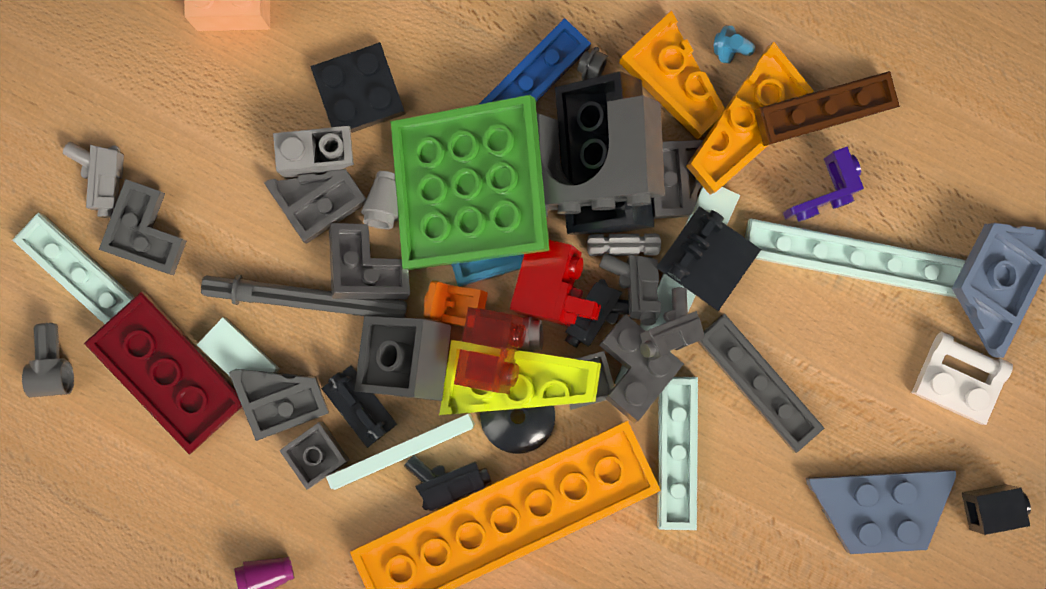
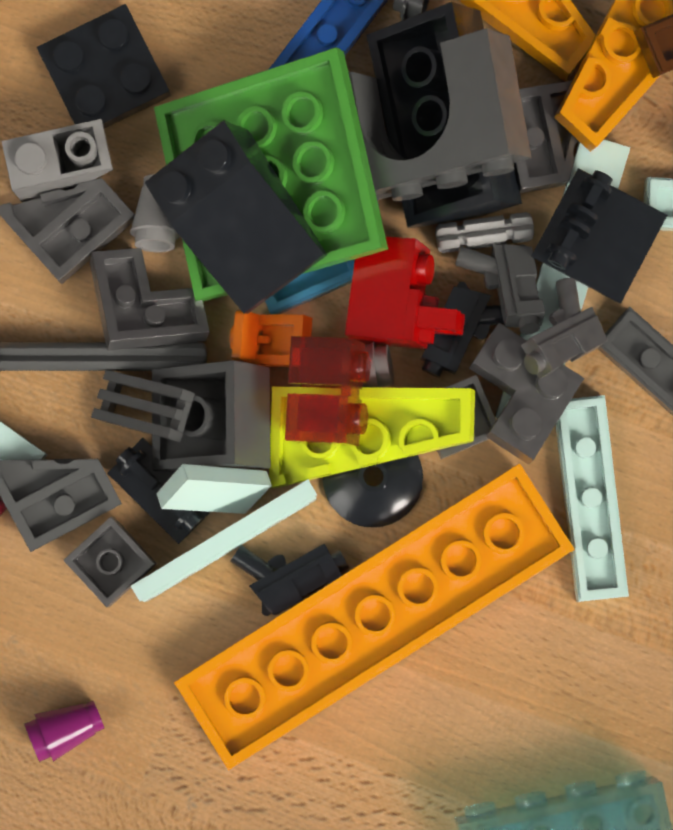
camera: 10 degrees left, 0 degrees up
(332, 333) = (112, 397): none -> dark grey tile
(397, 412) = (213, 489): none -> light aqua tile
(439, 210) = (236, 215): none -> black slope

